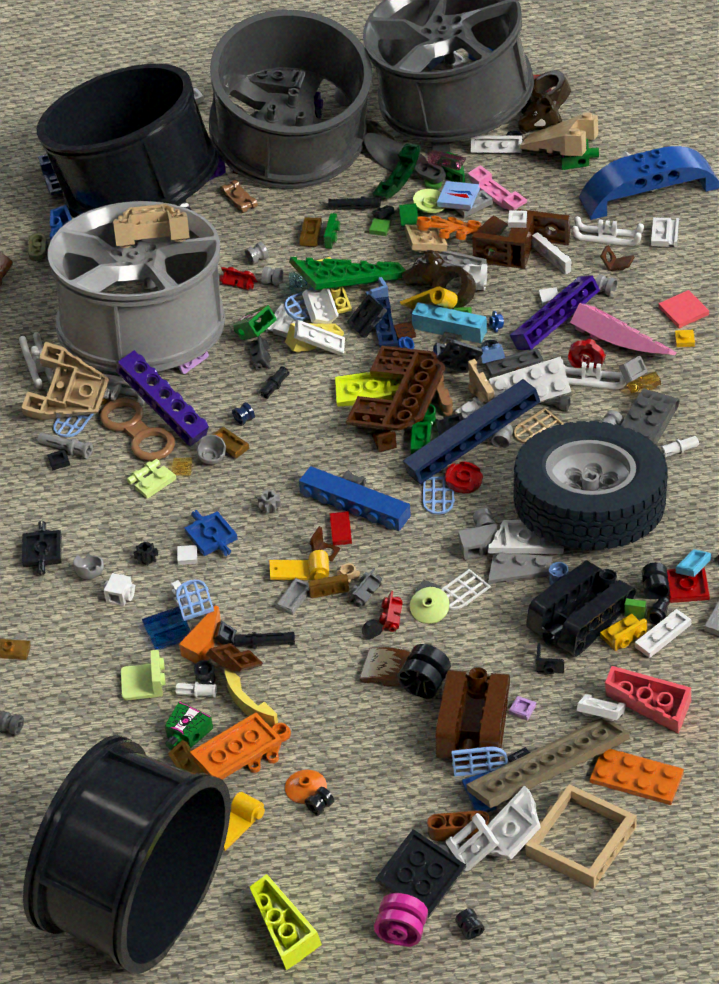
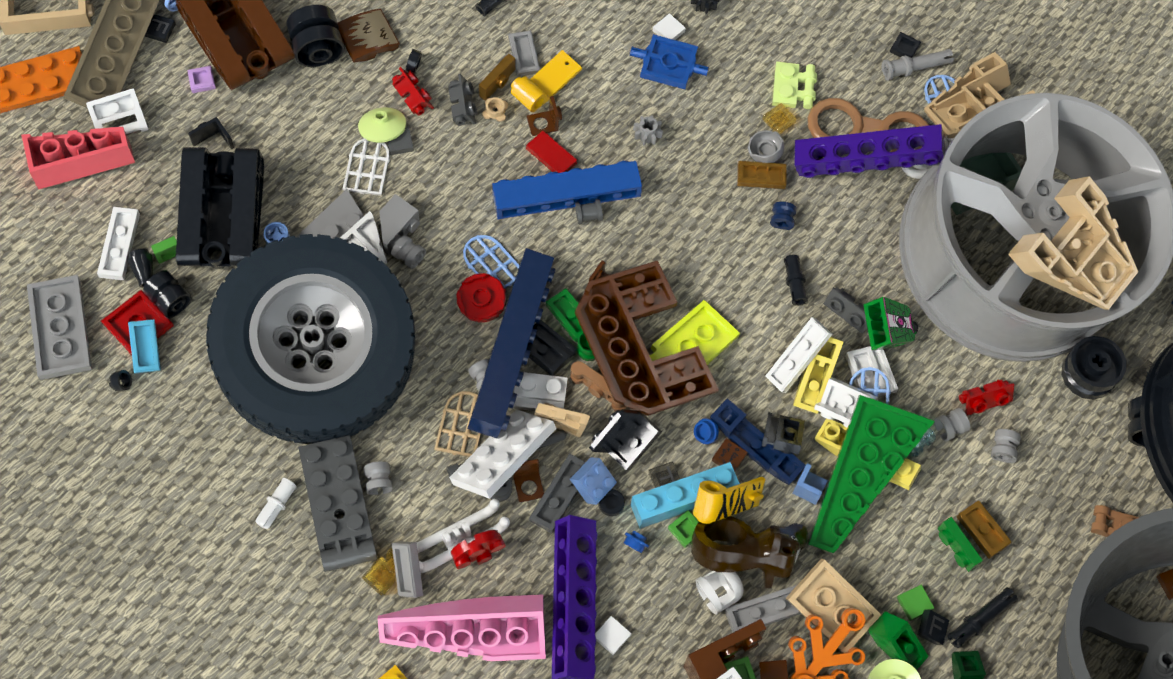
camera: 130 degrees right, 20 degrees up
(624, 632) = (159, 219): yellow bracket -> none

